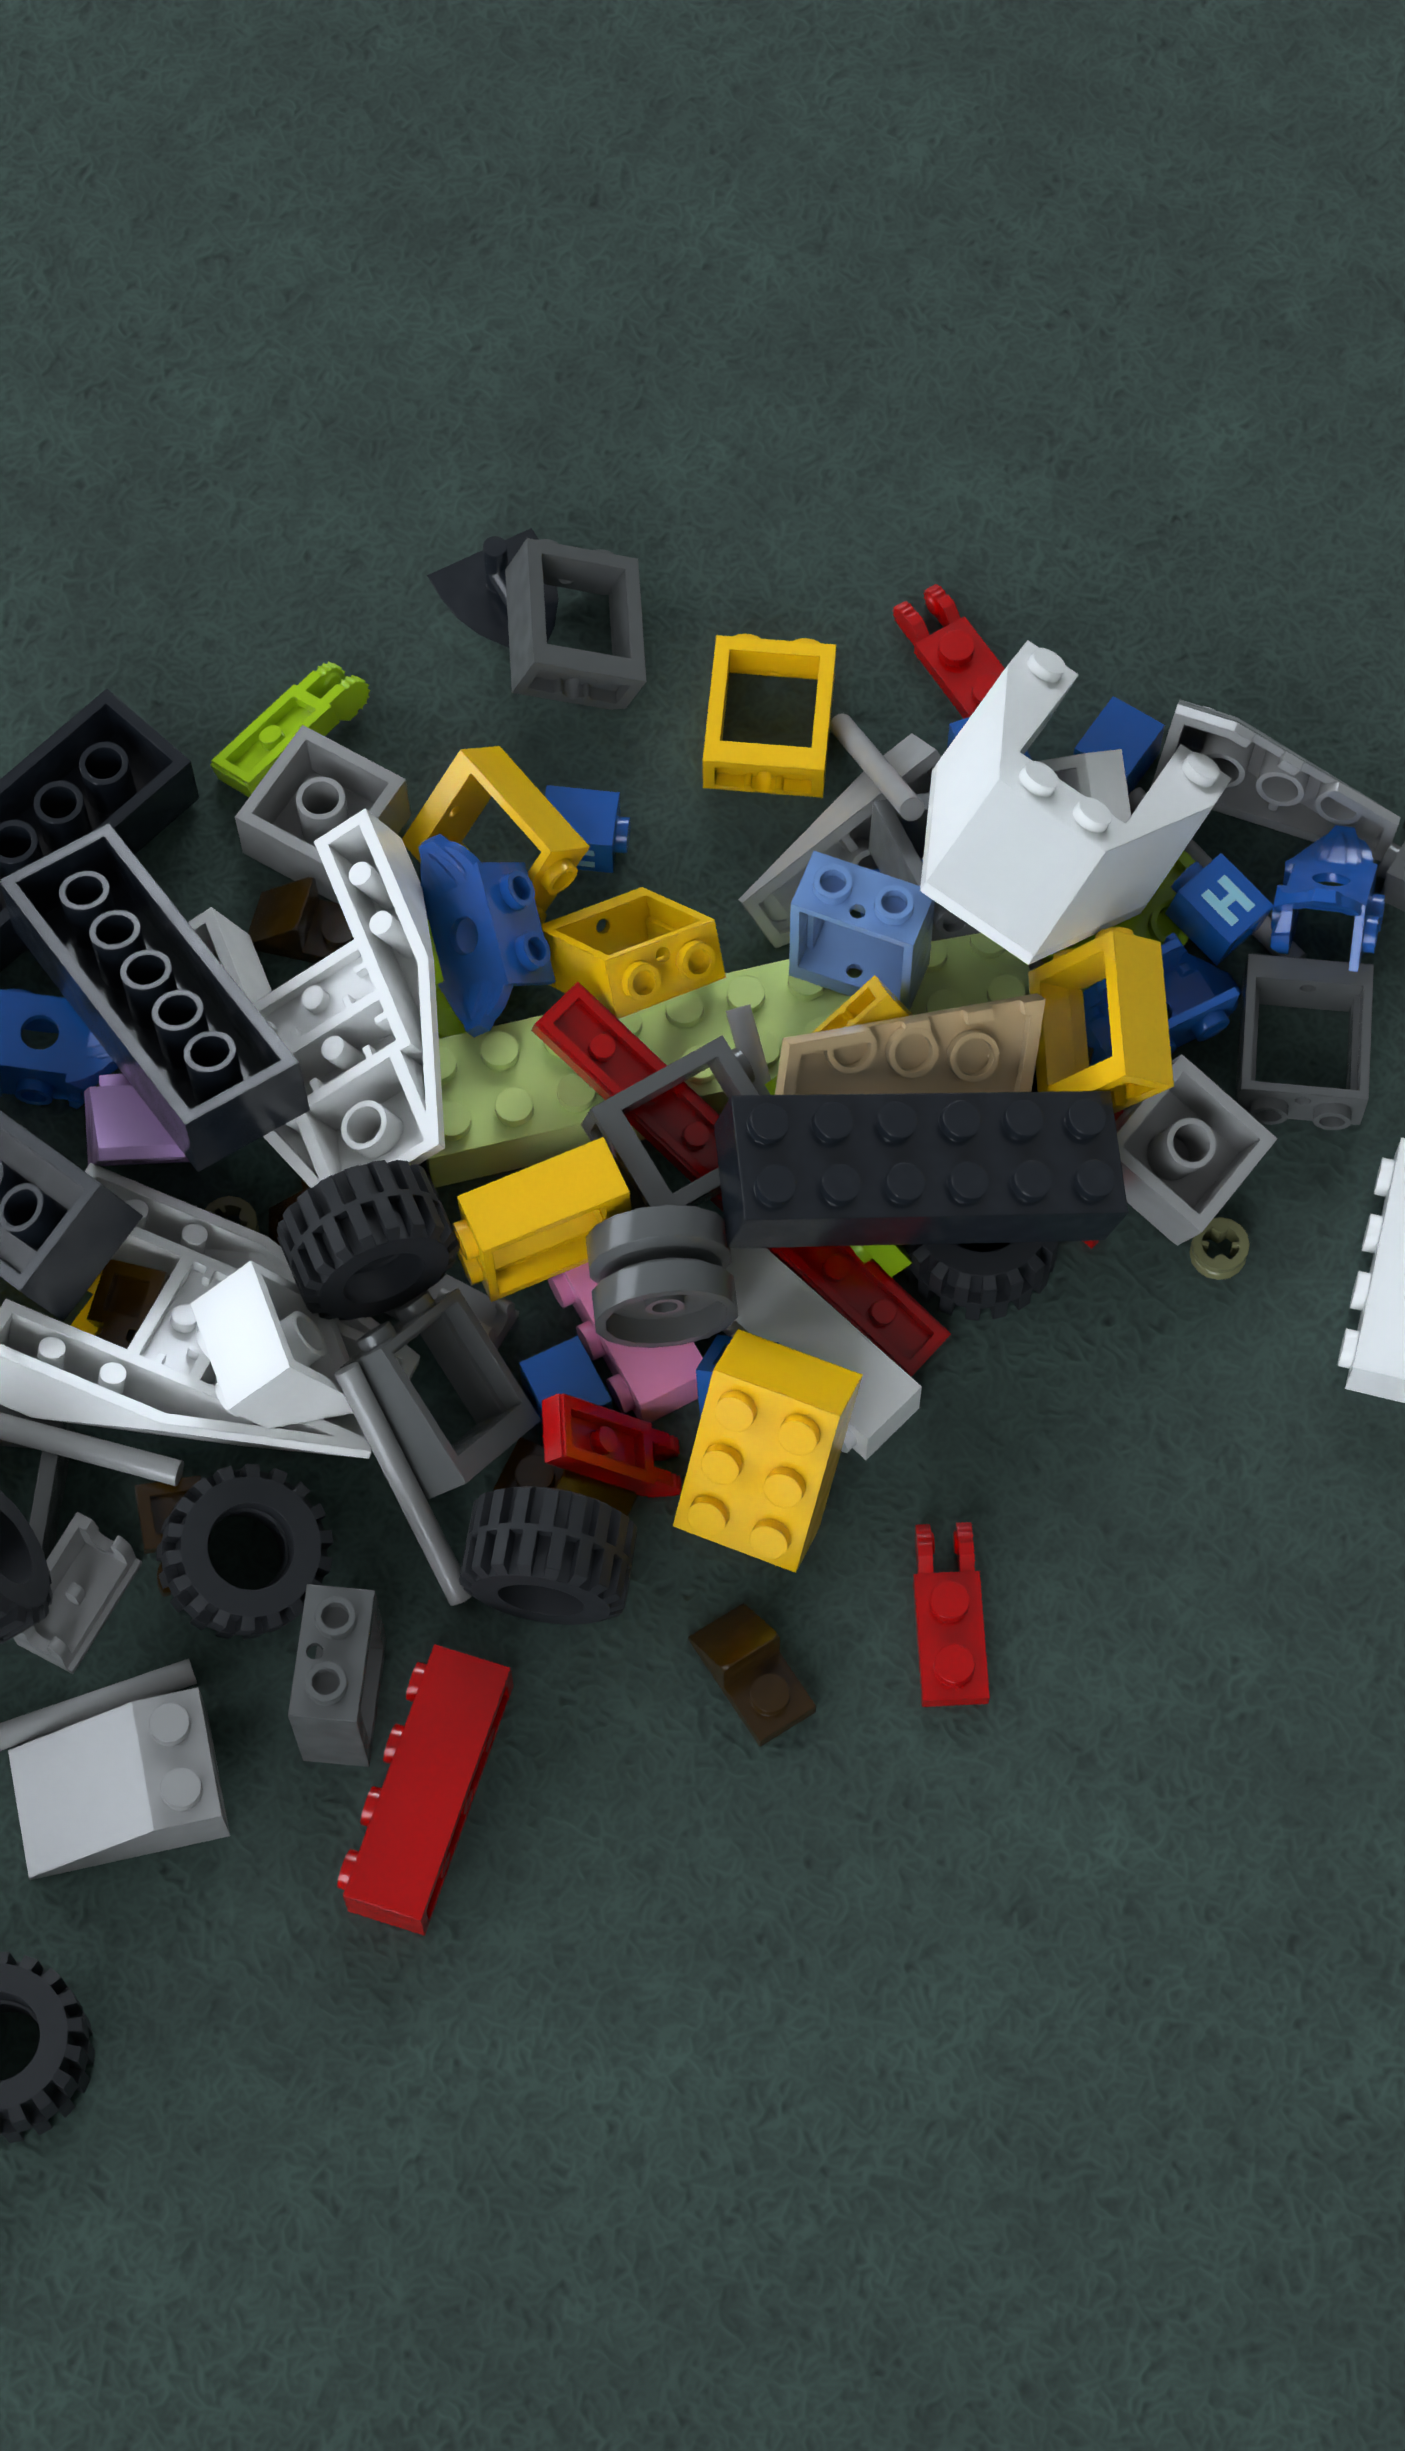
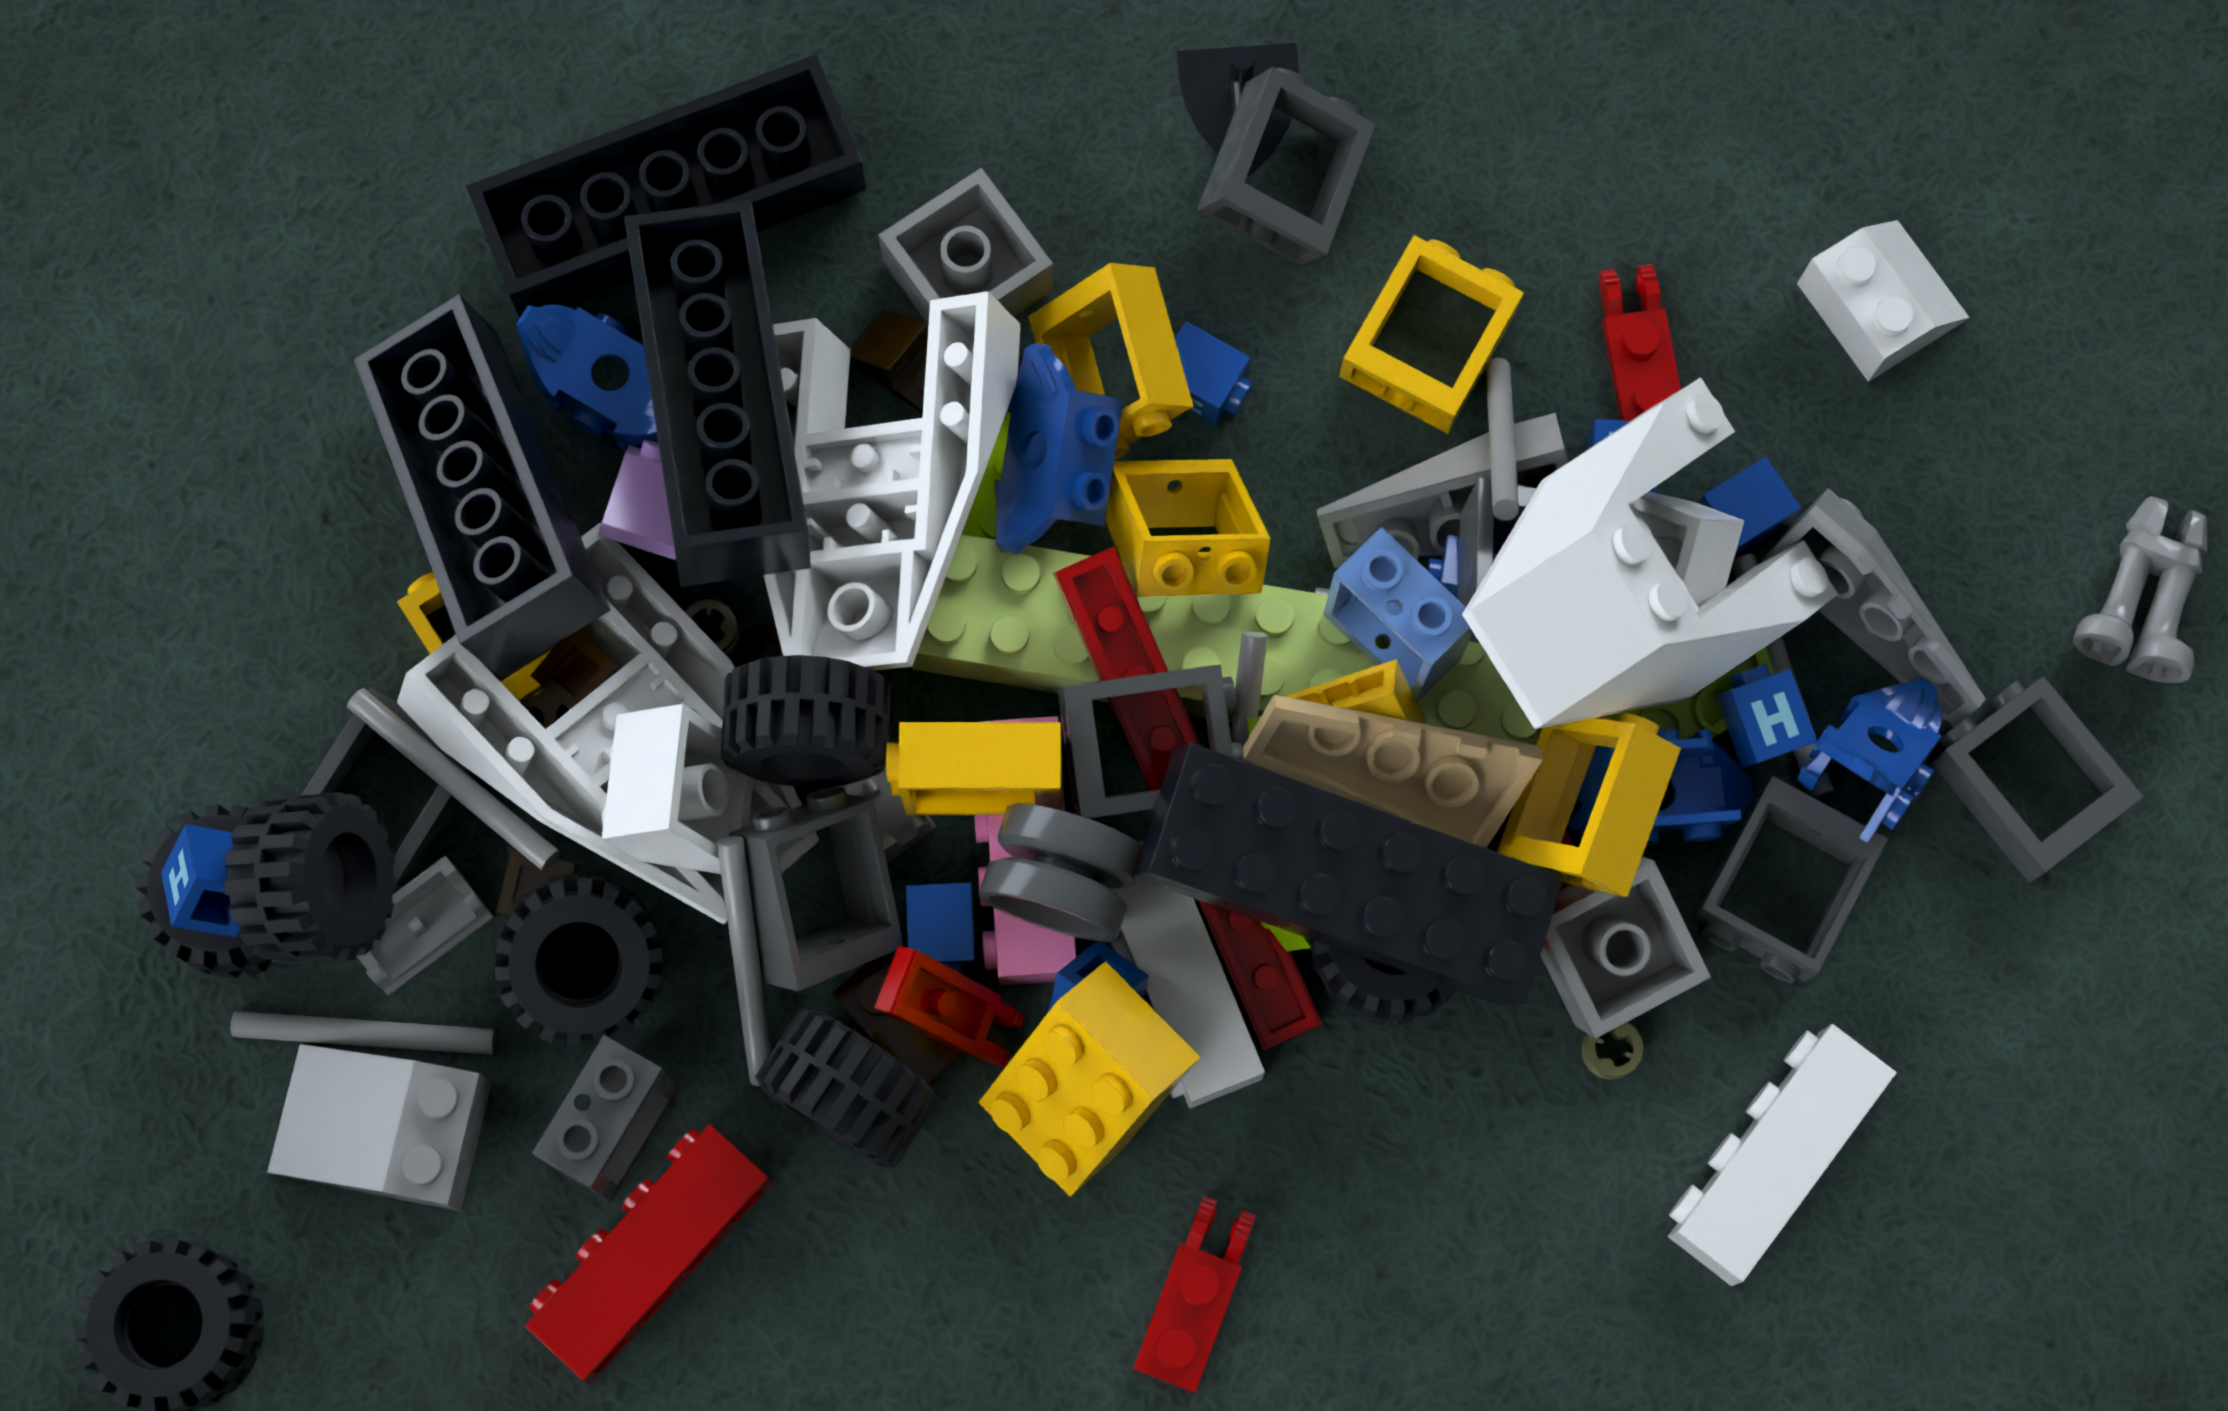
camera: 20 degrees right, 10 degrees up
(315, 703) = (996, 145): lime hinge -> none
(752, 1673) = (991, 1269): dark brown slope -> none
(1145, 535) = (1880, 297): none -> white slope

